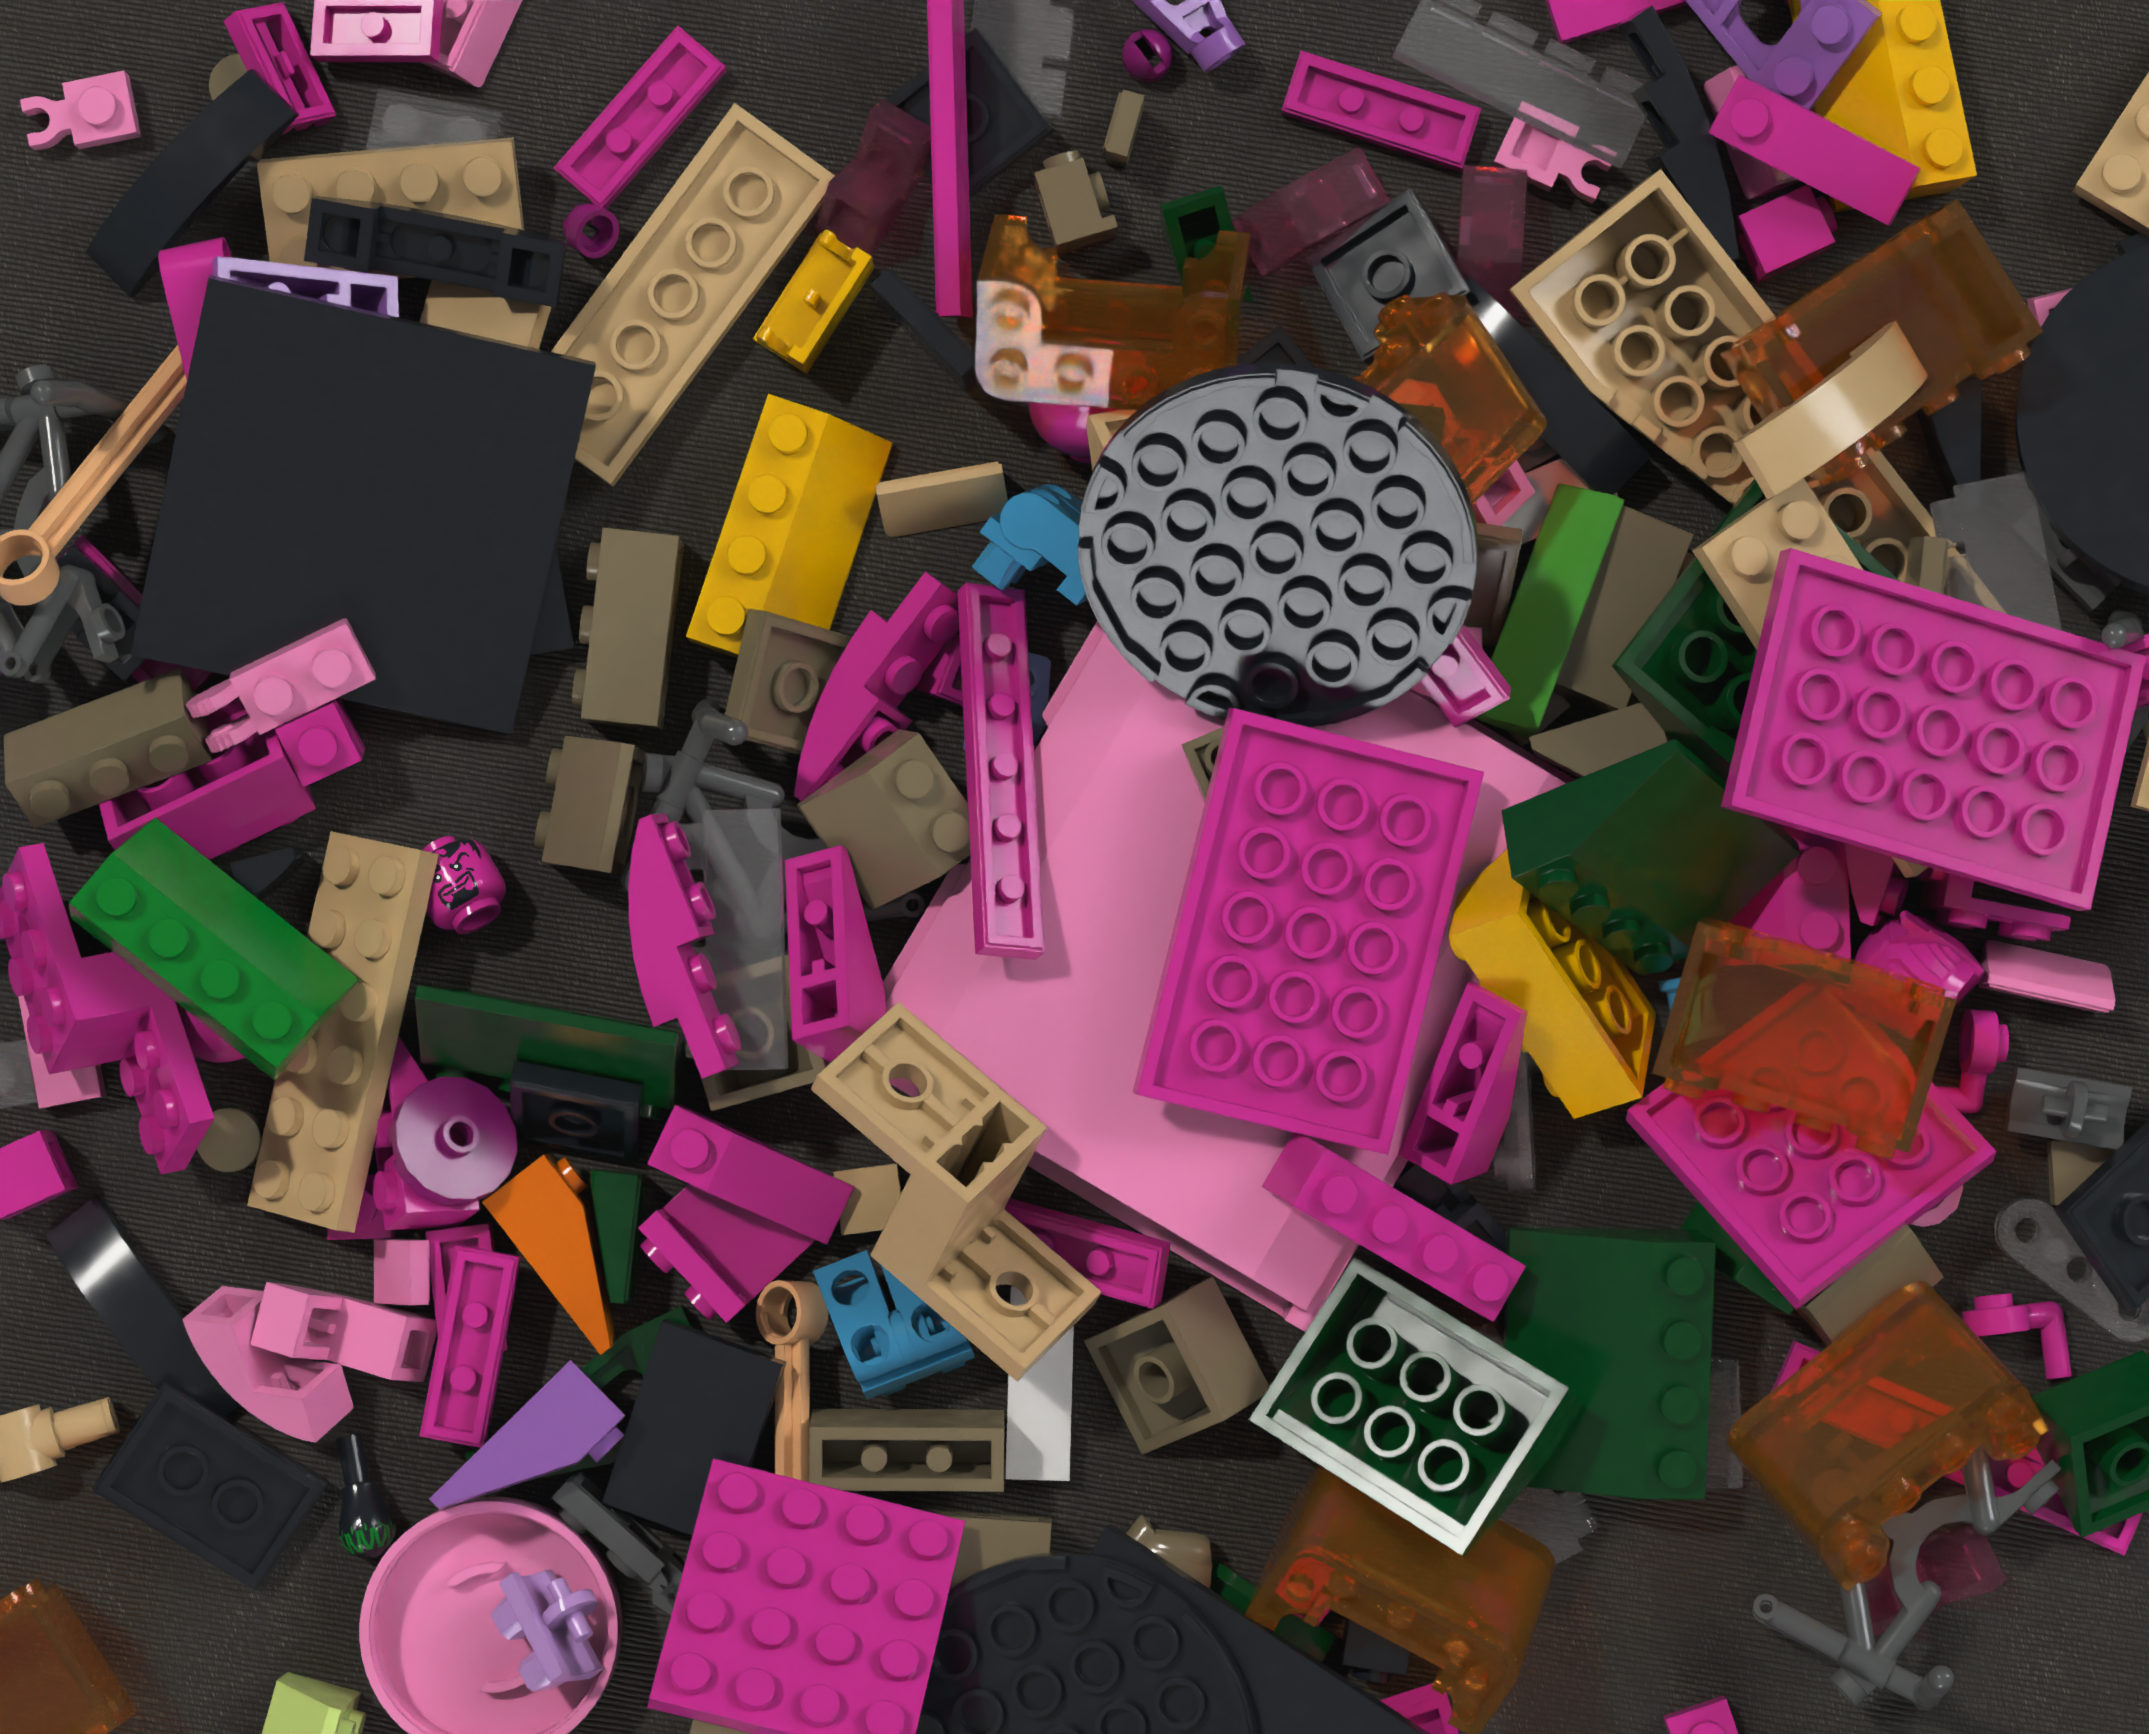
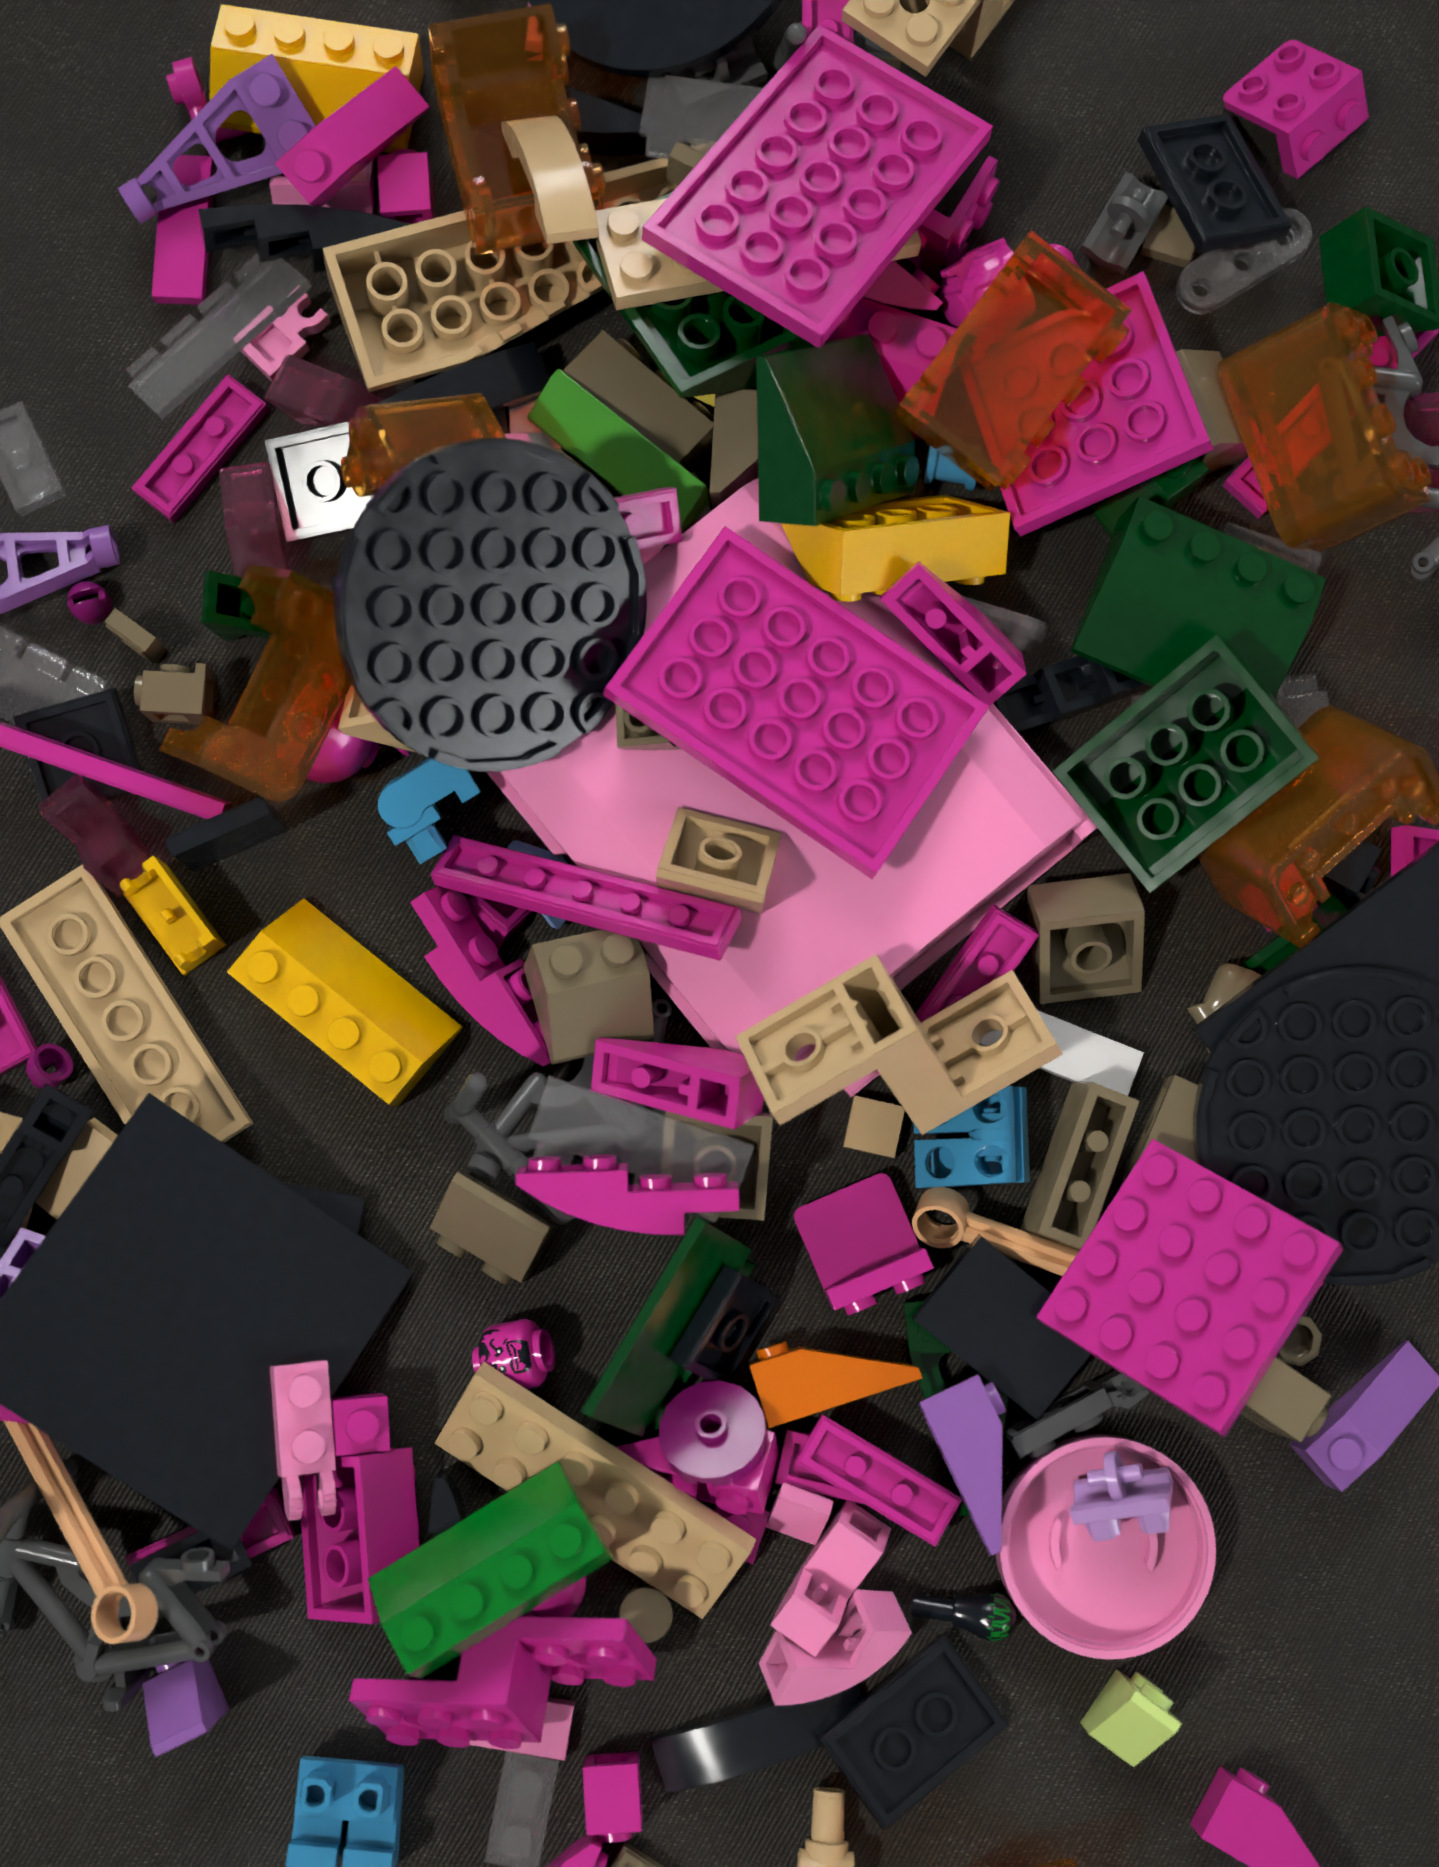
camera: 75 degrees left, 5 degrees down
(105, 748) = (299, 1600): dark tan brick -> none
(619, 1213) = (815, 1324): dark green slope -> none
(629, 628) = (366, 1150): dark tan brick -> none
(750, 1174) = (823, 1209): dark pink slope -> none
(781, 678) = (449, 1042): dark tan tile -> none
(941, 499) = (361, 874): tan slope -> none
(1096, 908) = (718, 860): none -> tan slope
(1393, 1226) = (1042, 726): dark pink brick -> none
(1999, 1315) = (1268, 301): dark pink plate -> none
(2047, 977) = (1025, 203): bright pink slope -> none

